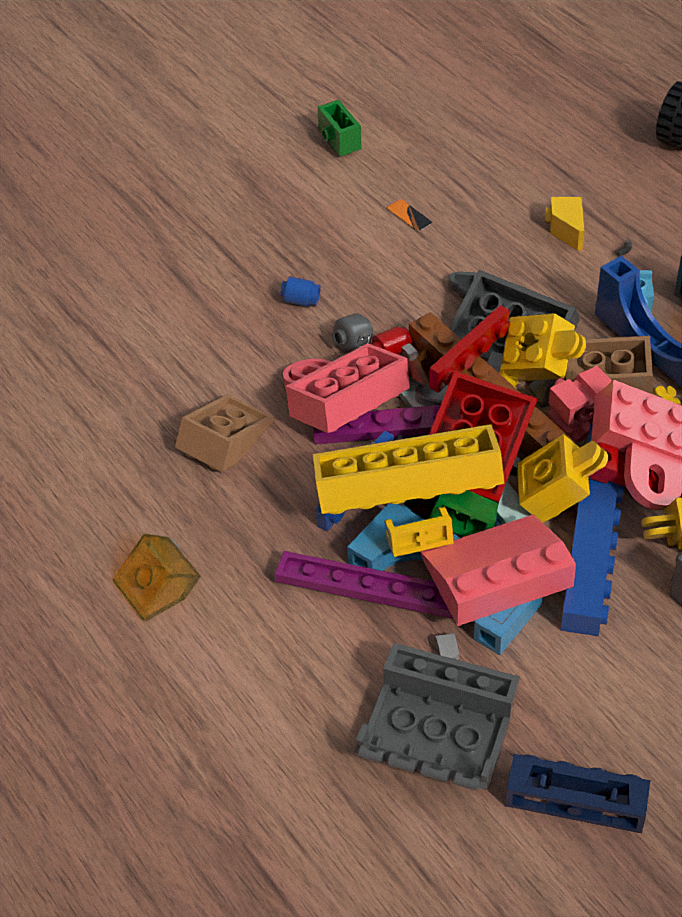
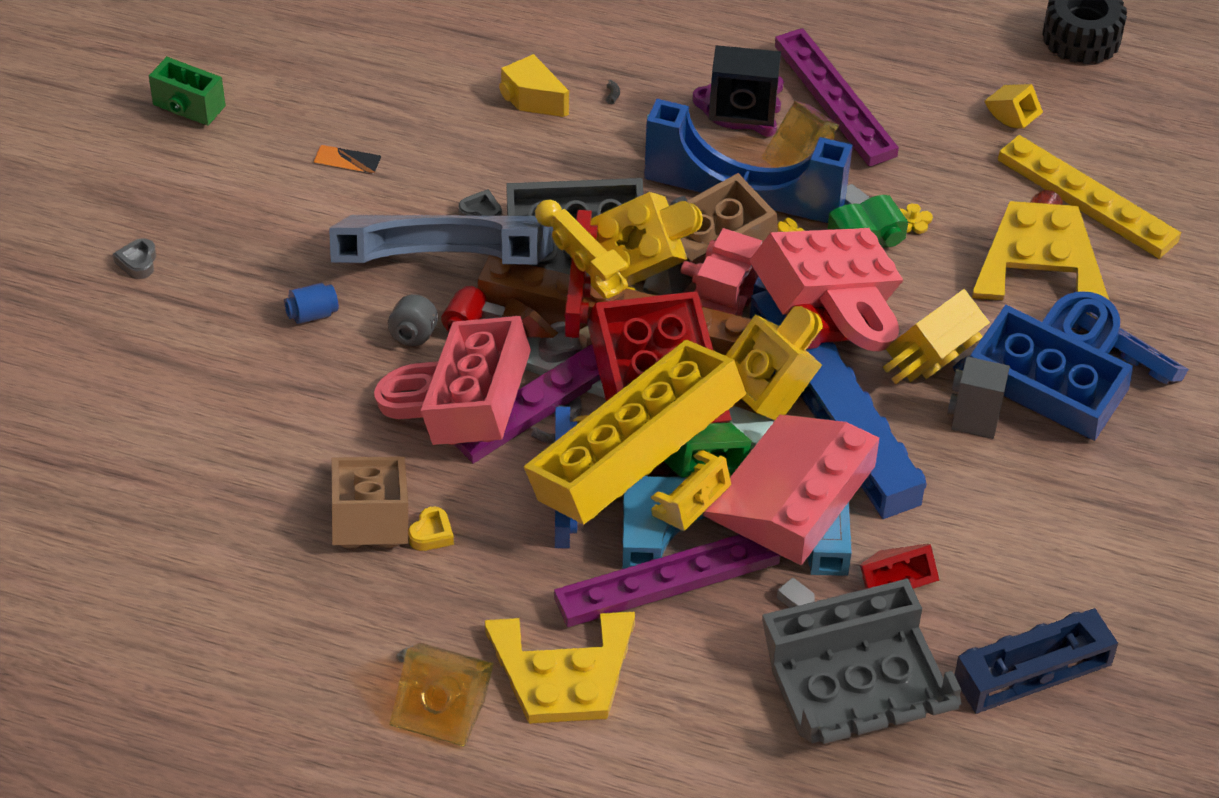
camera: 40 degrees left, 0 degrees up
(226, 217) = (136, 258): none -> flat silver tile
(245, 617) = (563, 682): none -> yellow wing
(248, 472) = (431, 530): none -> yellow tile
(444, 304) = (376, 236): none -> sand blue arch
(474, 345) = (584, 249): none -> yellow plate
(536, 670) = (901, 563): none -> red slope

